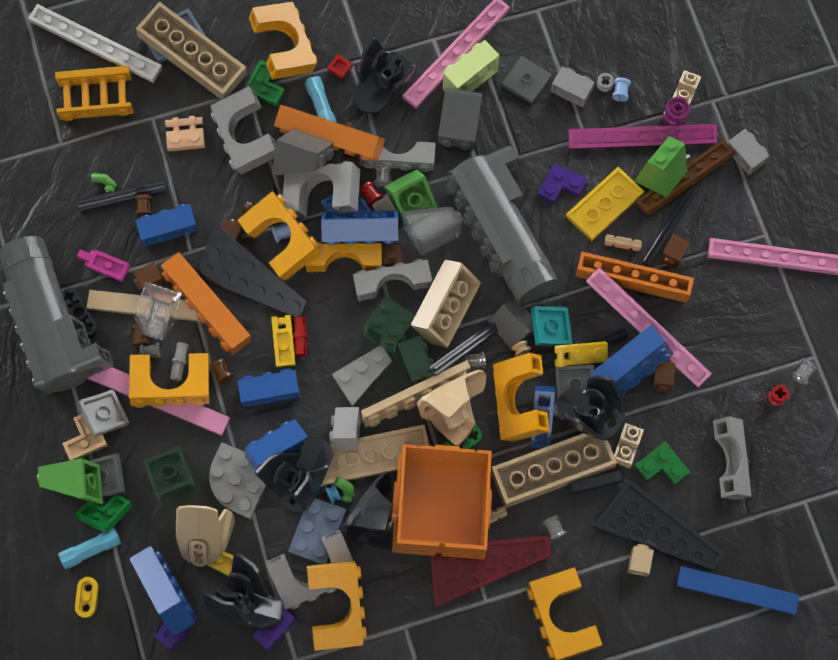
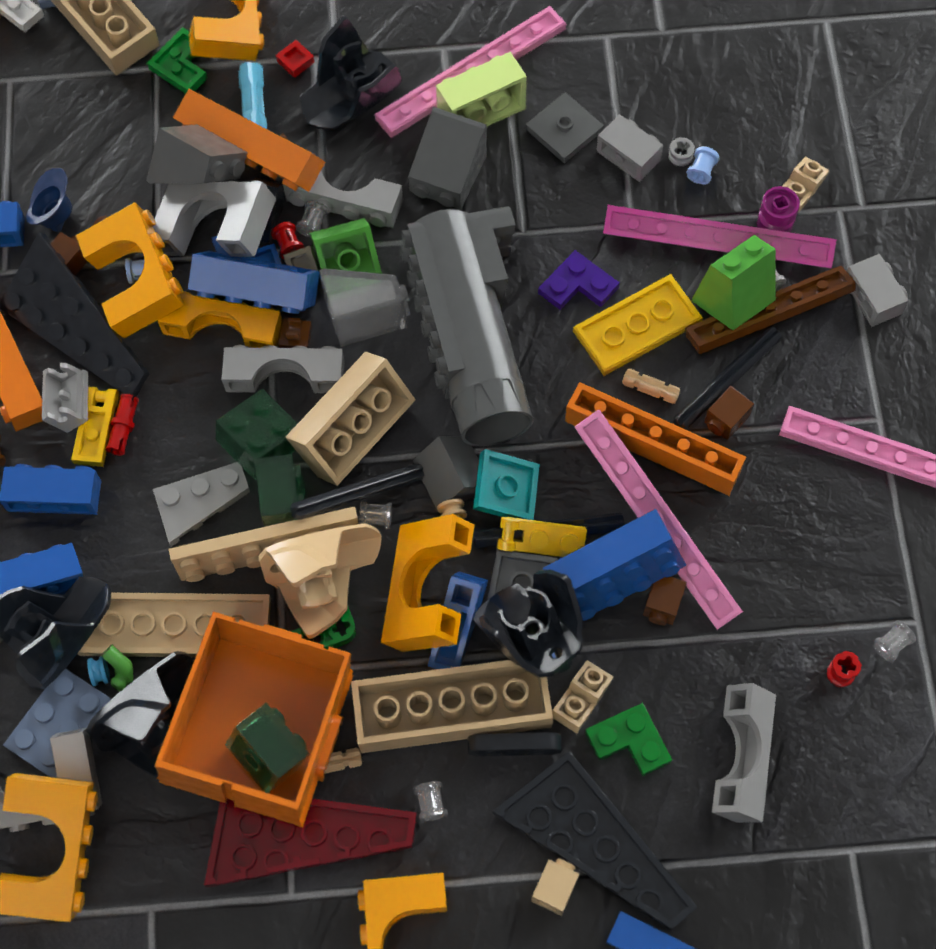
camera: 15 degrees right, 5 degrees down
(185, 139) = (46, 116): light nougat plate -> none
(209, 197) = (49, 201): none -> dark blue piece
(227, 115) = (111, 94): light grey arch -> none
(261, 327) = (65, 397): none -> light grey hinge
(345, 428) = (144, 575): light grey brick -> none
(455, 518) = (267, 747): none -> clear green brick

